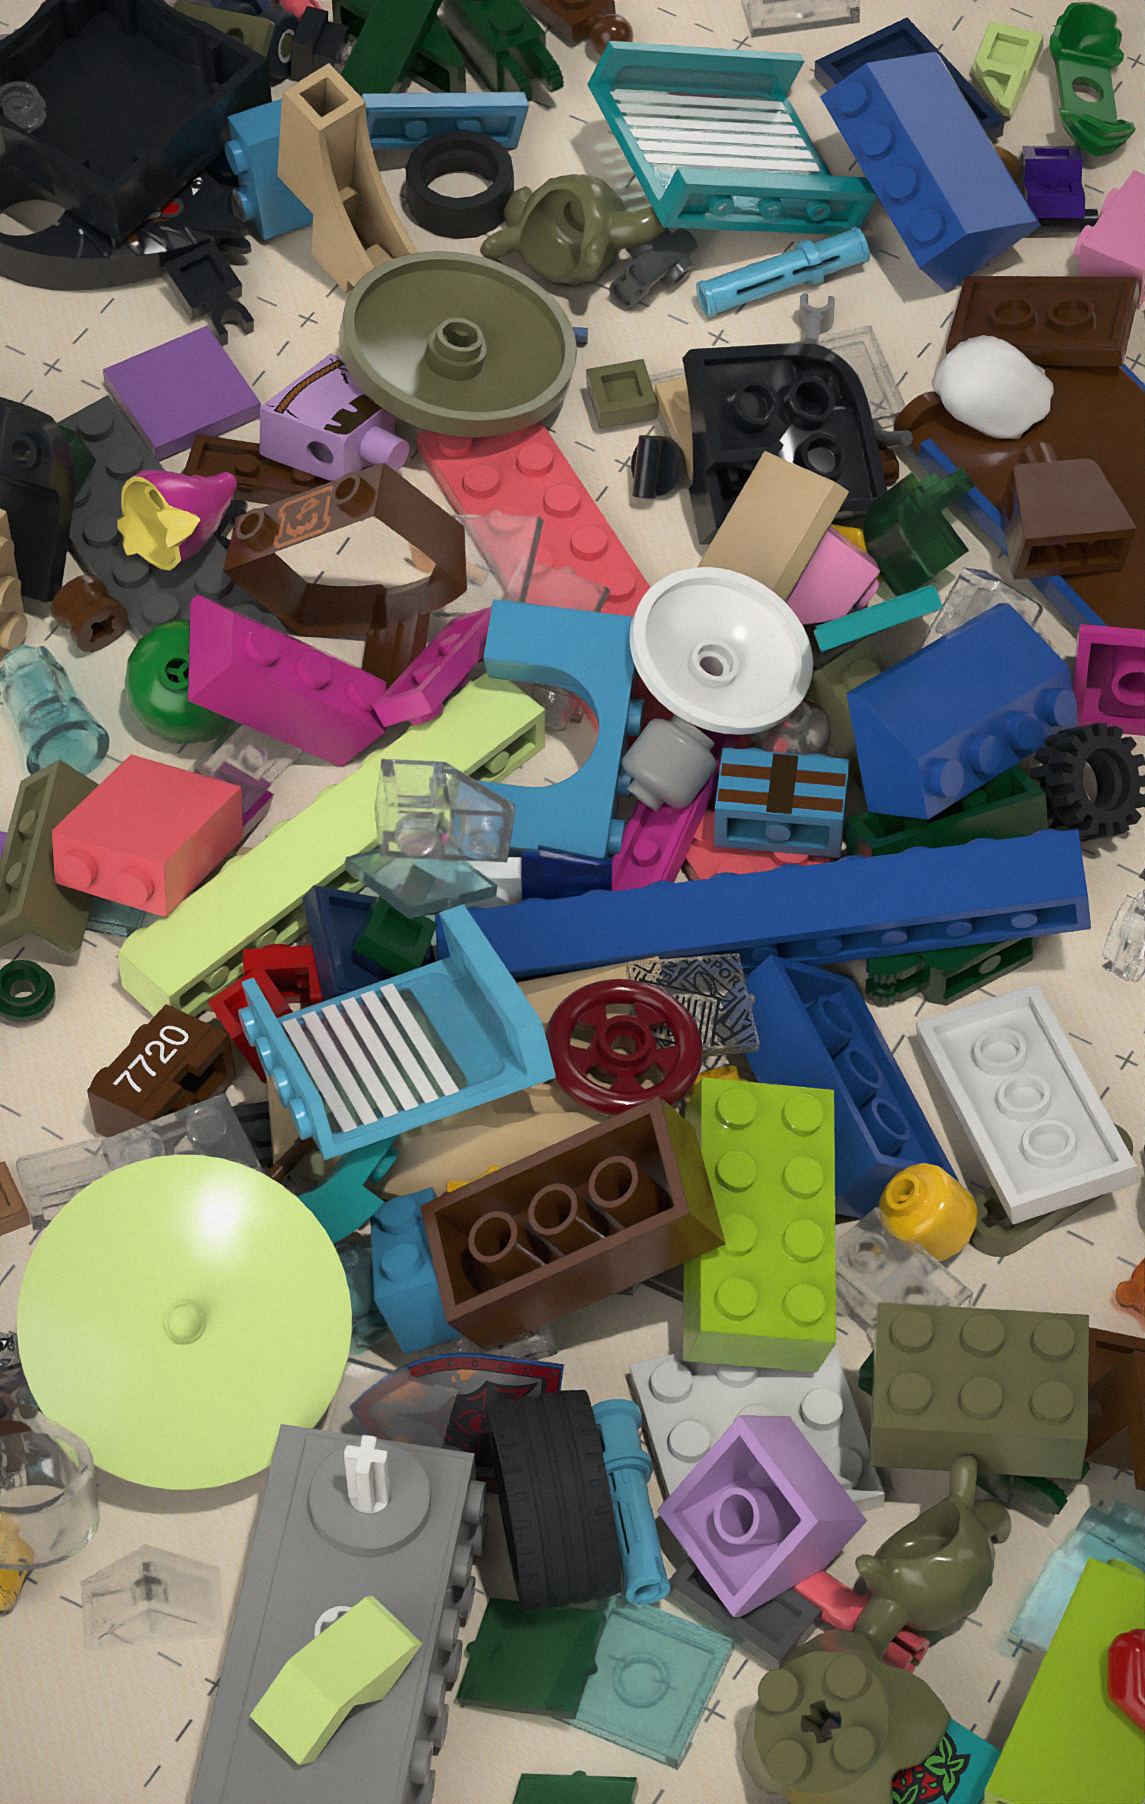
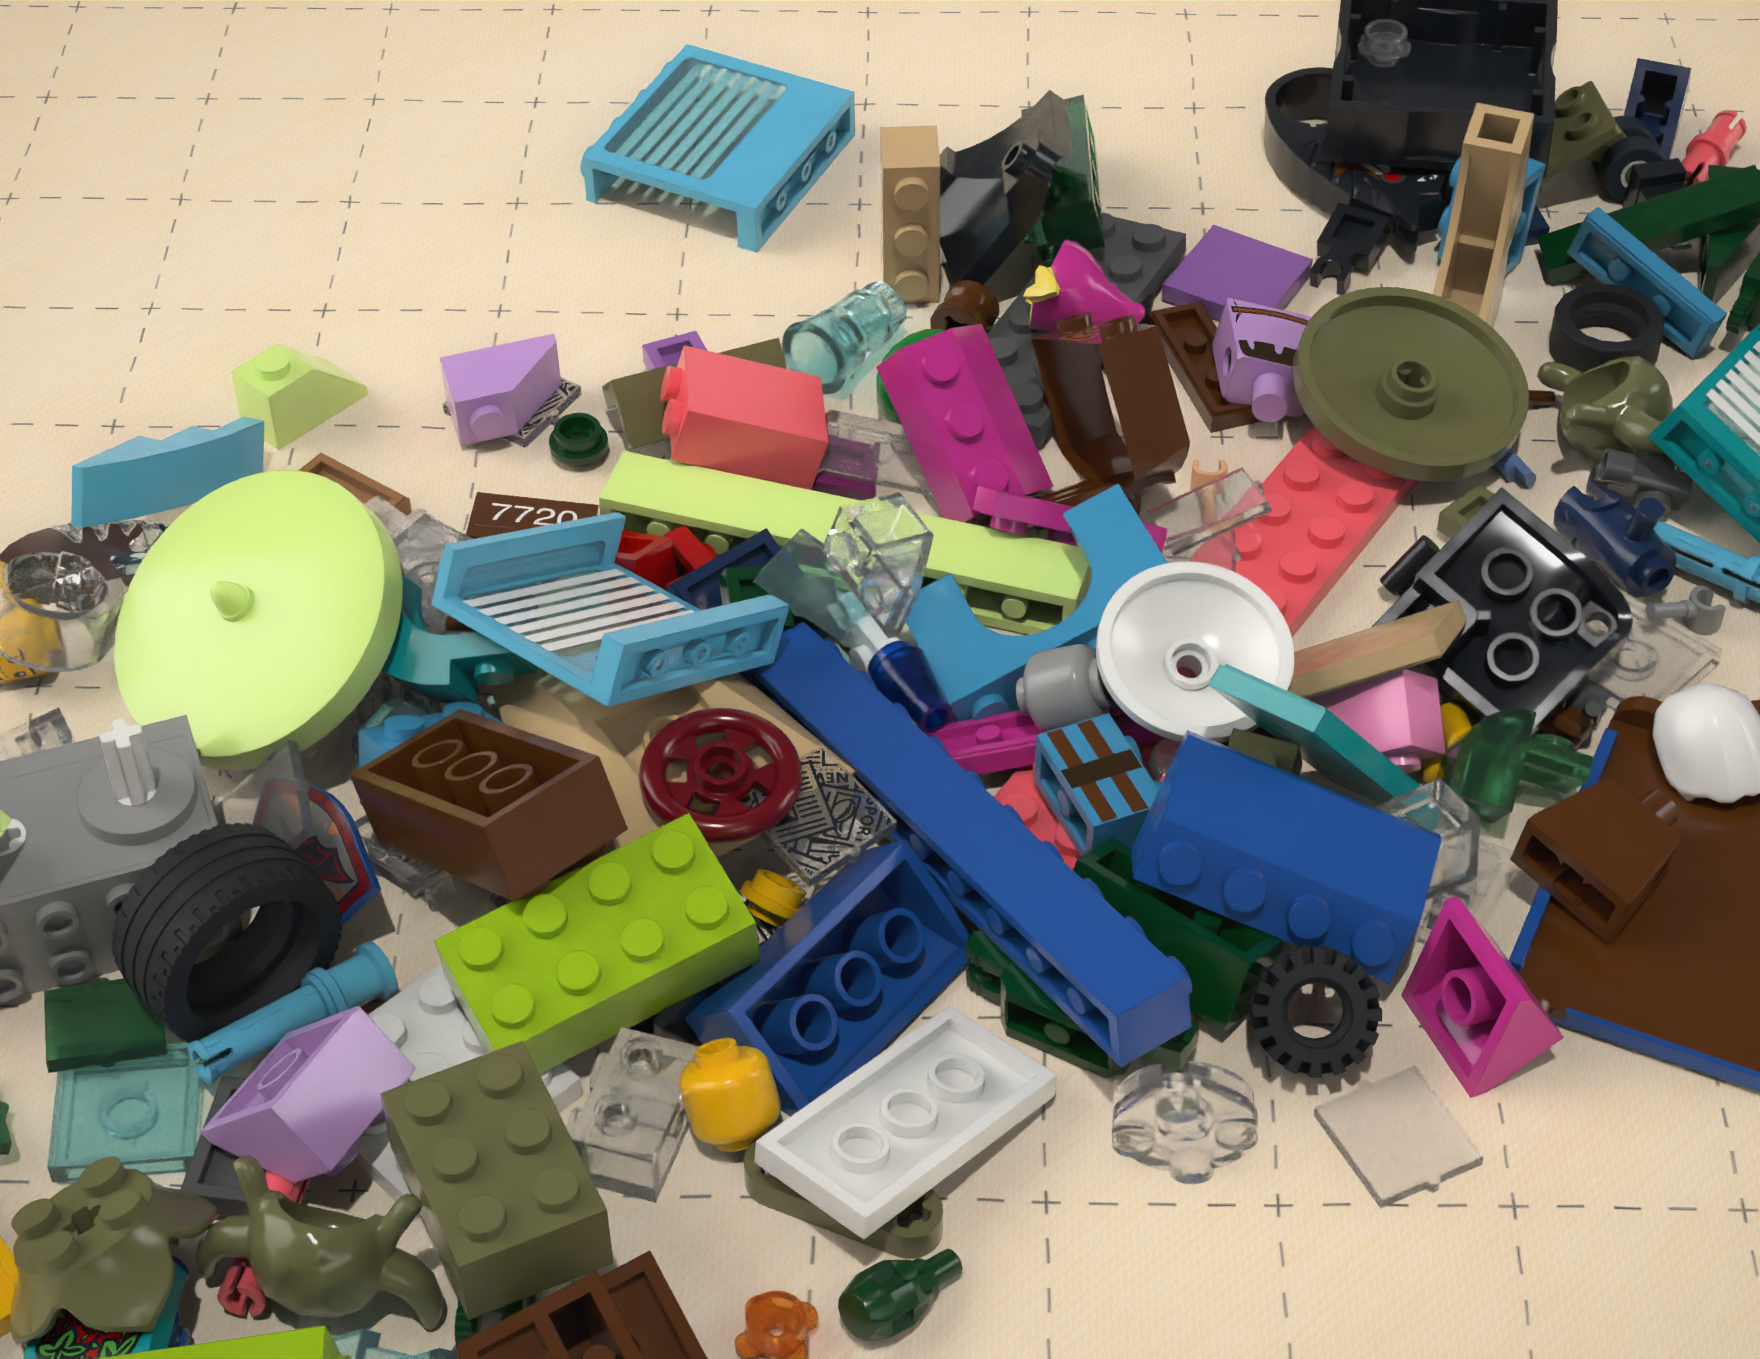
camera: 60 degrees right, 10 degrees down
(721, 314) = (1618, 537): none -> dark blue piece

